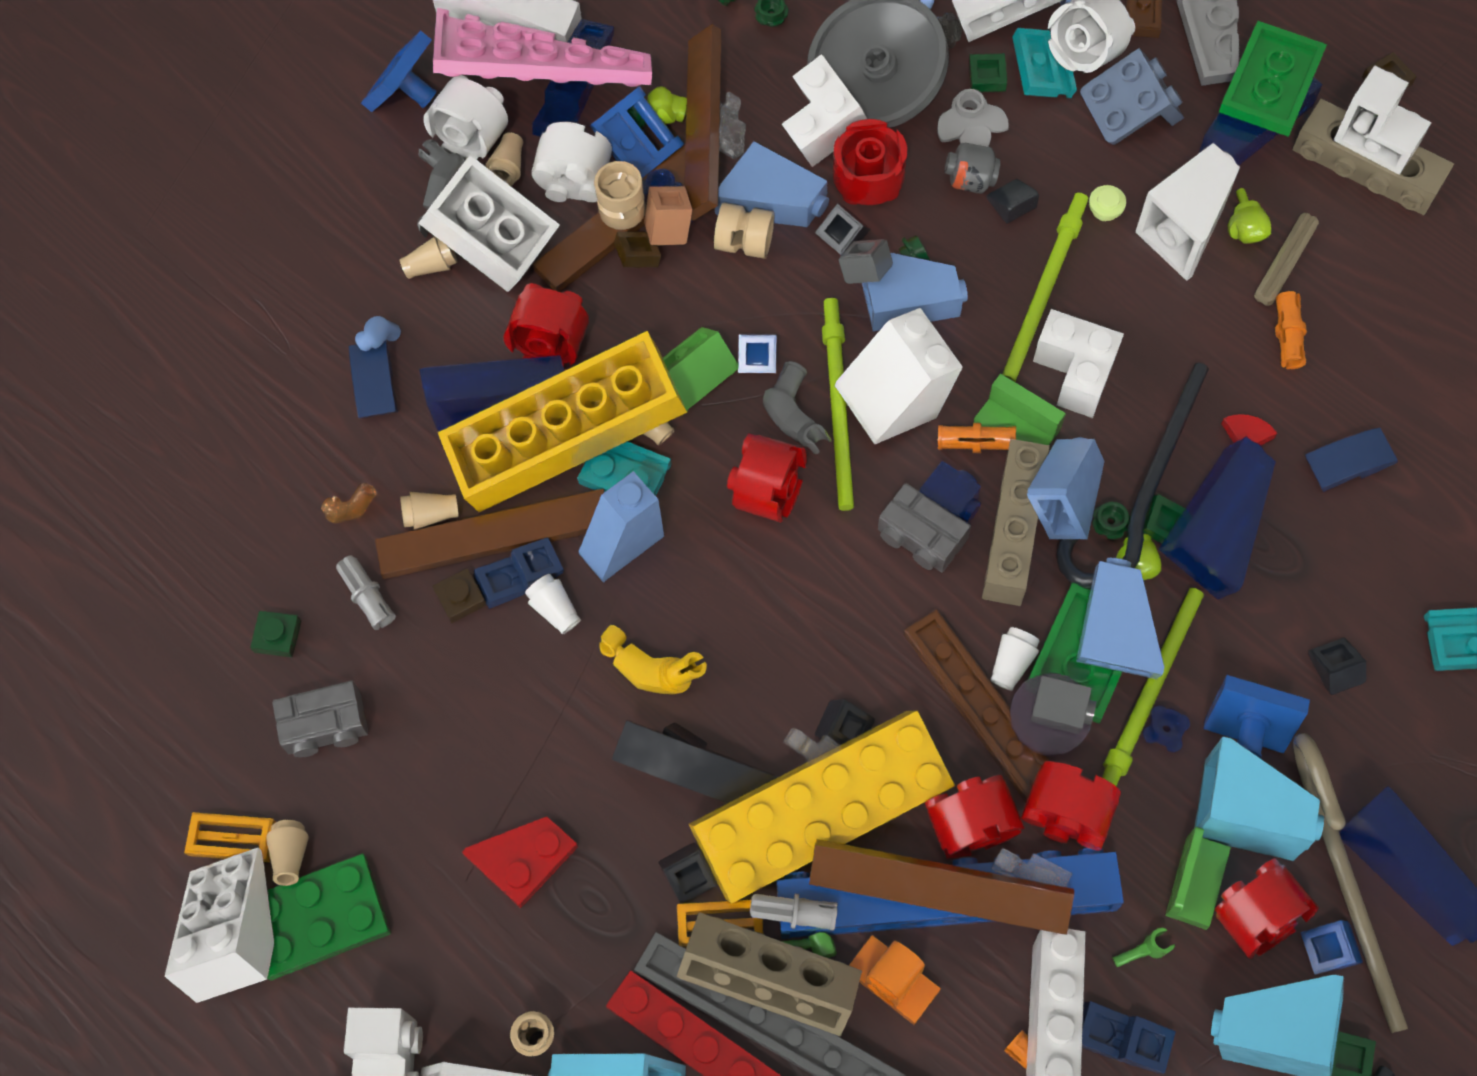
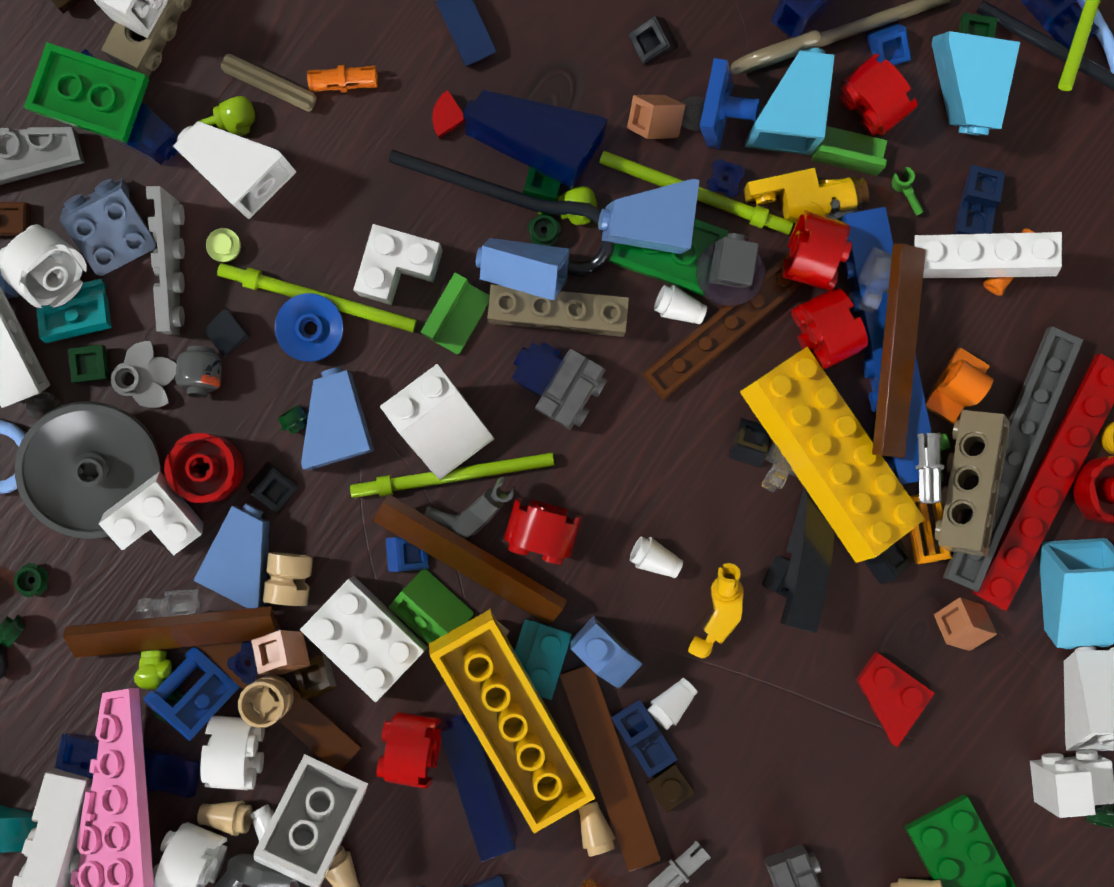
camera: 100 degrees left, 20 degrees up
(523, 1029) = (1044, 665): tan cone -> none
(596, 951) = (965, 624): none -> nougat panel
(672, 294) = (364, 638): none -> white brick
(721, 601) = (654, 557): none -> white cone
(742, 406) = (469, 560): none -> reddish brown tile
(866, 261) = (320, 461): dark grey slope -> none
(975, 437) = (478, 349): orange pin -> none
(1015, 260) = (292, 324): none -> blue dish
(1091, 144) = (166, 260): none -> light grey wing
(1138, 817) = (802, 192): none -> yellow plate
(1243, 652) = (656, 116): none -> nougat panel

